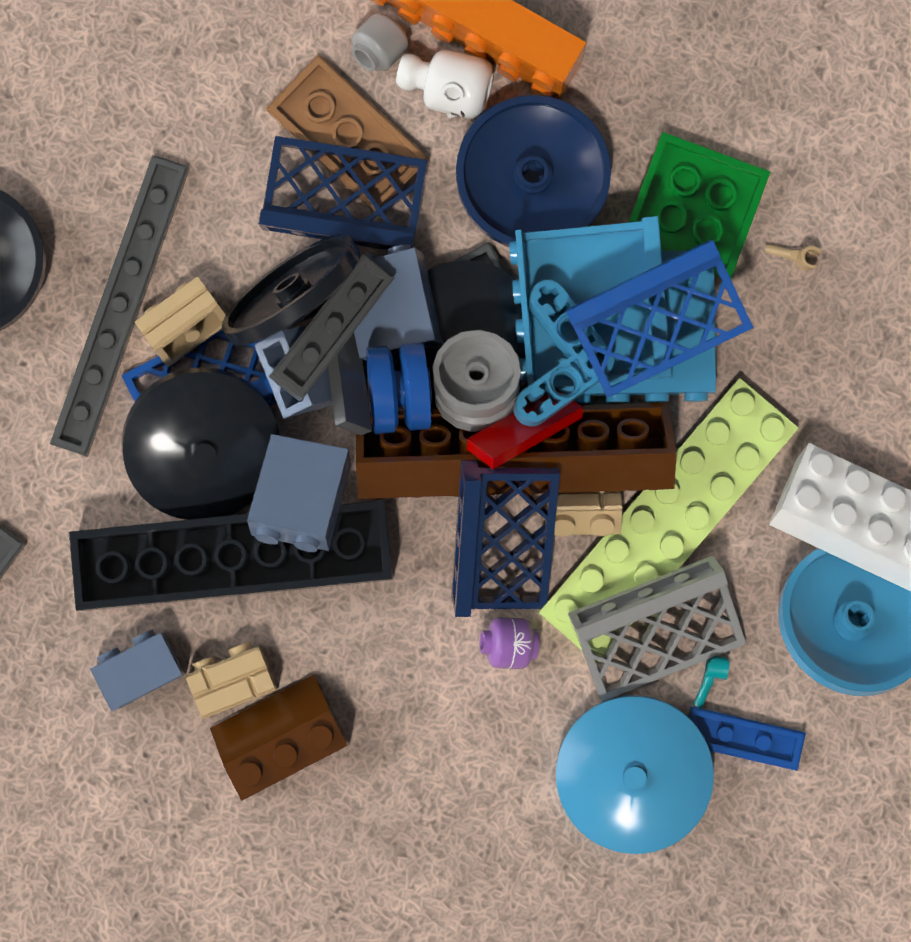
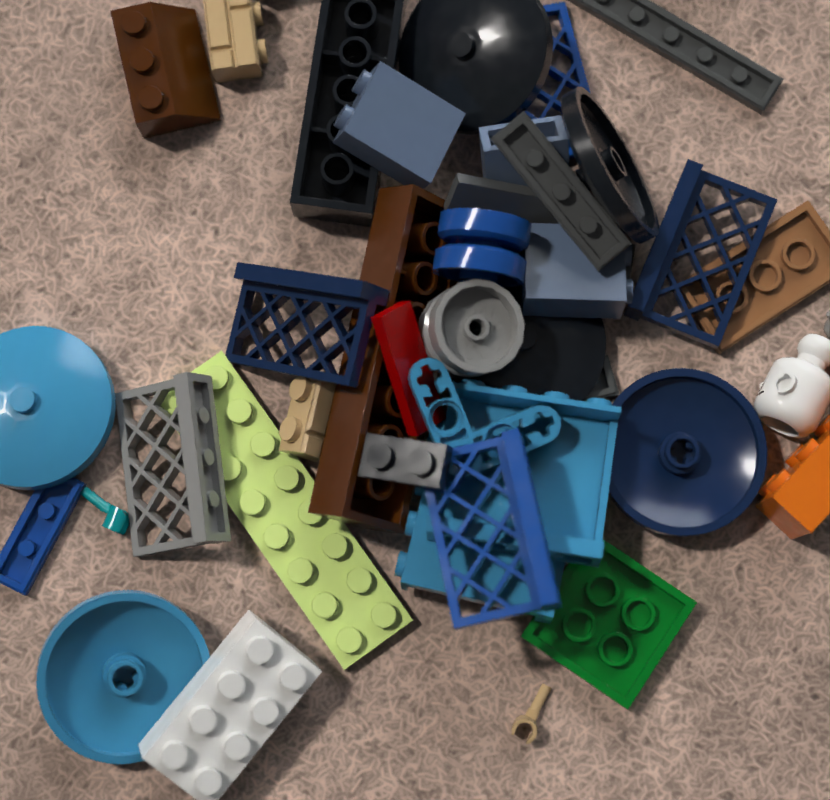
camera: 105 degrees right, 5 degrees down
(181, 321) = (604, 64): tan brick -> none
(509, 643) = (197, 313): medium lavender head -> none
(615, 407) = (405, 461): none -> plate

